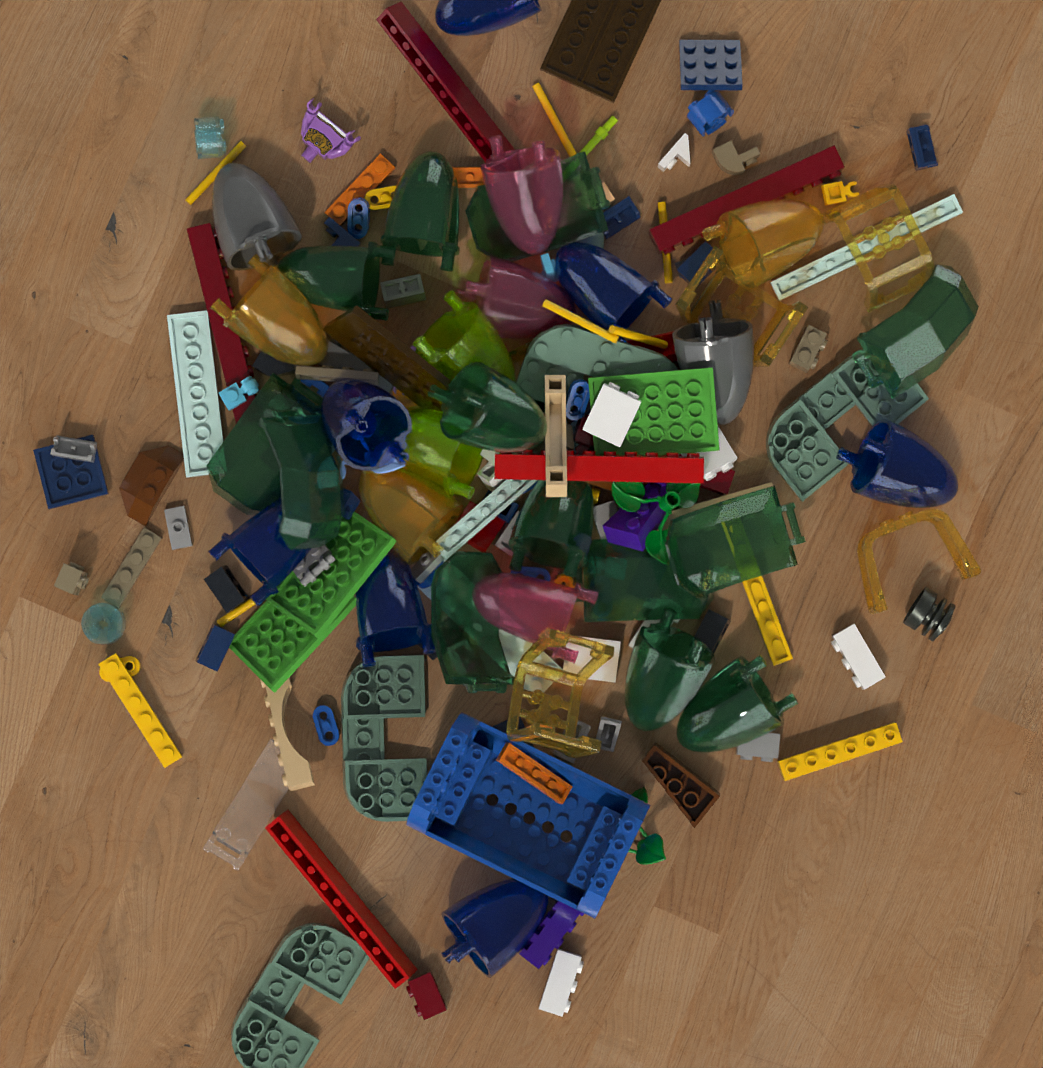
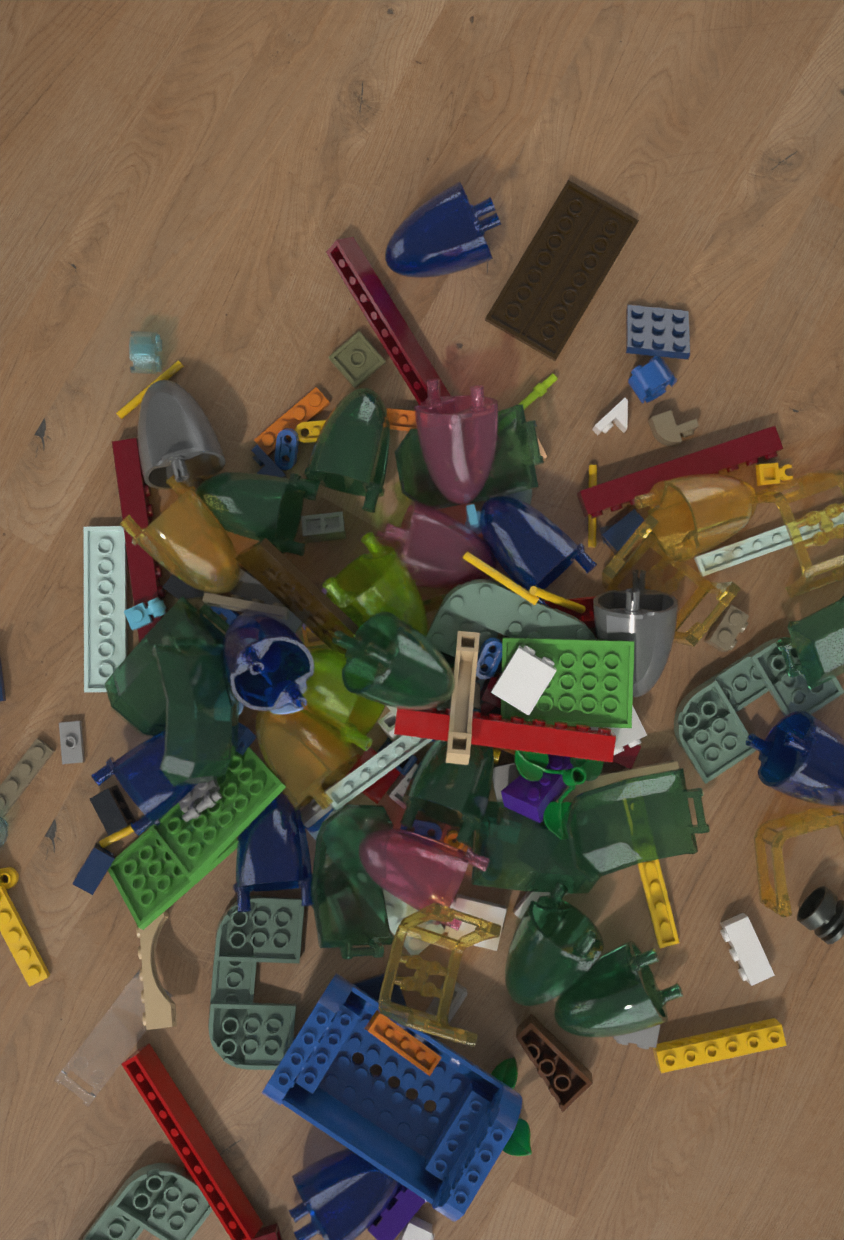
camera: 10 degrees right, 0 degrees up
(149, 481) = (47, 692): reddish brown wedge -> none
(323, 136) = (260, 362): medium lavender torso -> none
(326, 725) = (197, 960): blue plate -> none
(418, 122) = (357, 359): none -> olive plate
(554, 120) = (493, 370): yellow bar -> none
(608, 733) = (483, 999): light grey slope -> none
(620, 216) = (551, 475): dark blue hinge -> none
(712, 629) = (600, 905): black hinge -> none

